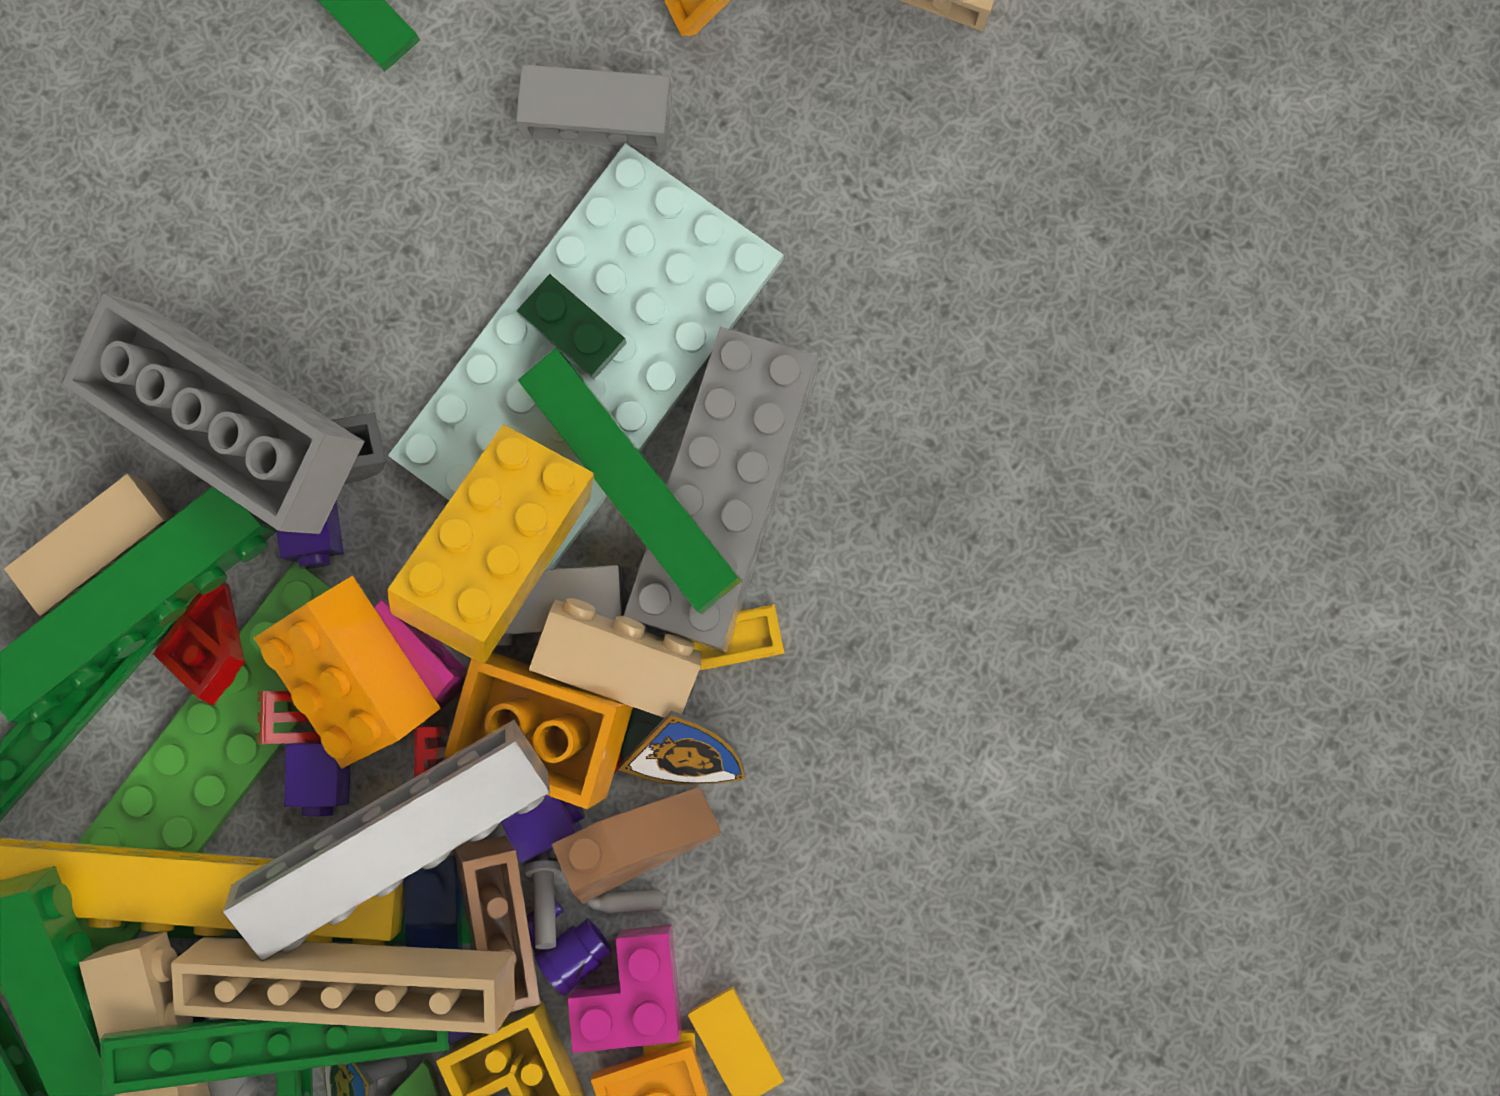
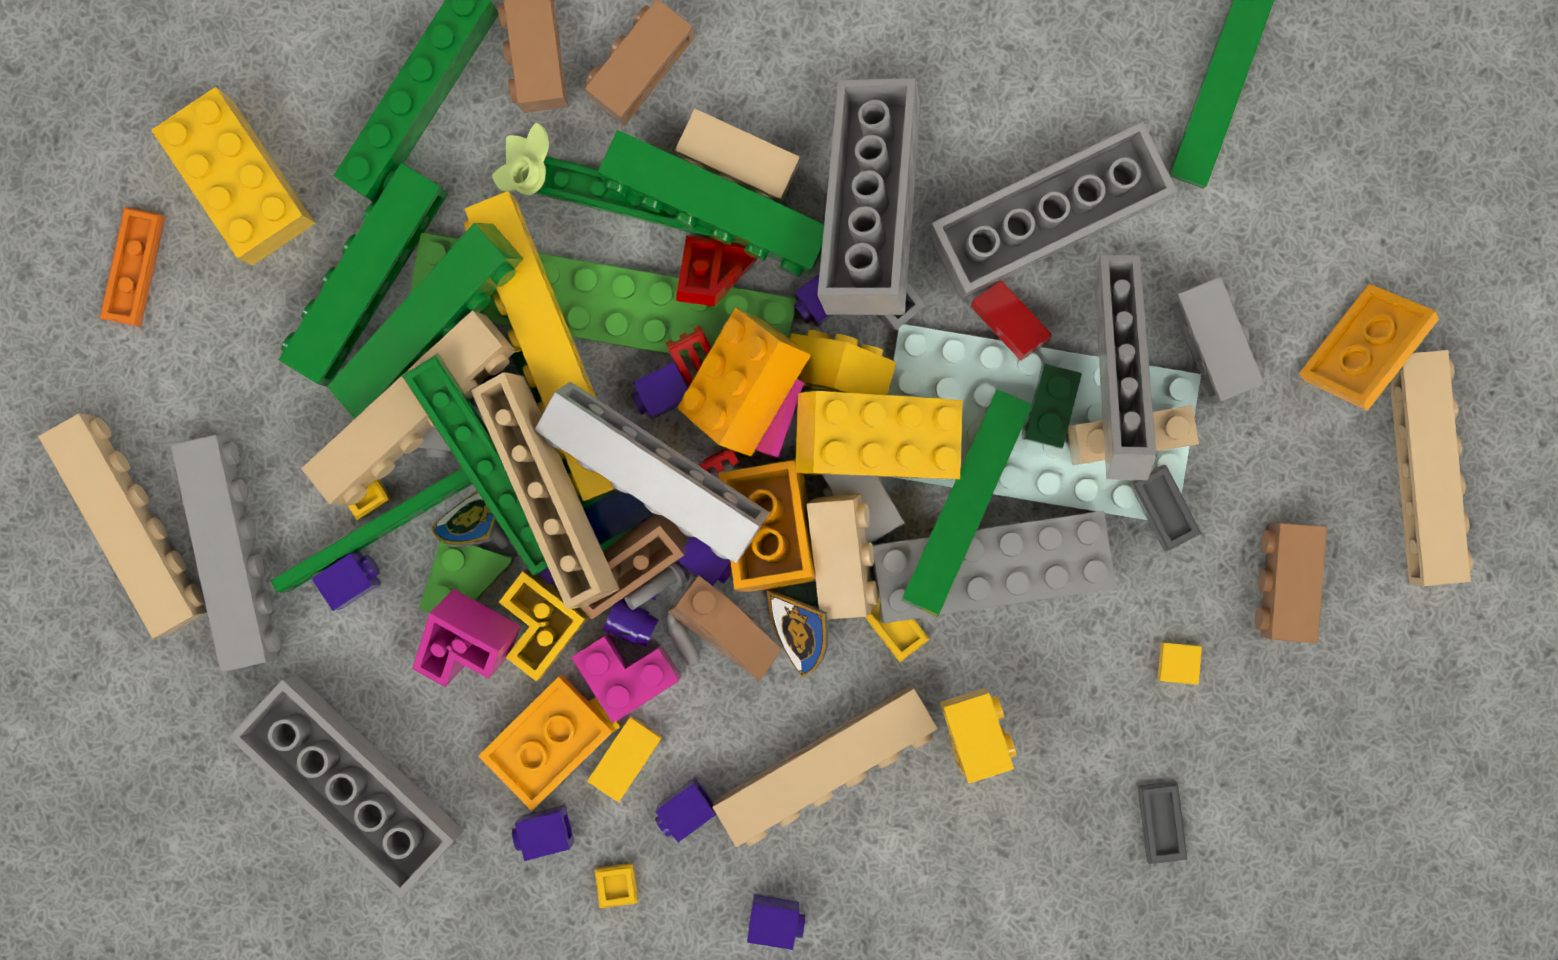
camera: 60 degrees right, 5 degrees up
(346, 218) = (1051, 210): none -> light grey brick
(387, 540) = (842, 365): none -> yellow brick
(450, 325) = (1011, 320): none -> red tile
(563, 219) = (1124, 369): none -> light grey brick
(648, 251) = (1171, 427): none -> tan brick
(755, 256) = (1165, 508): none -> dark grey tile
(833, 1004) = (684, 811): none -> dark purple brick
(862, 808) = (824, 766): none -> tan brick
(910, 604) = (976, 735): none -> yellow brick
(913, 157) = (1291, 582): none -> medium nougat brick
(945, 329) = (1179, 663): none -> yellow tile
(1021, 962) = (775, 922): none -> dark purple brick
(1122, 440) = (1162, 822): none -> dark grey tile

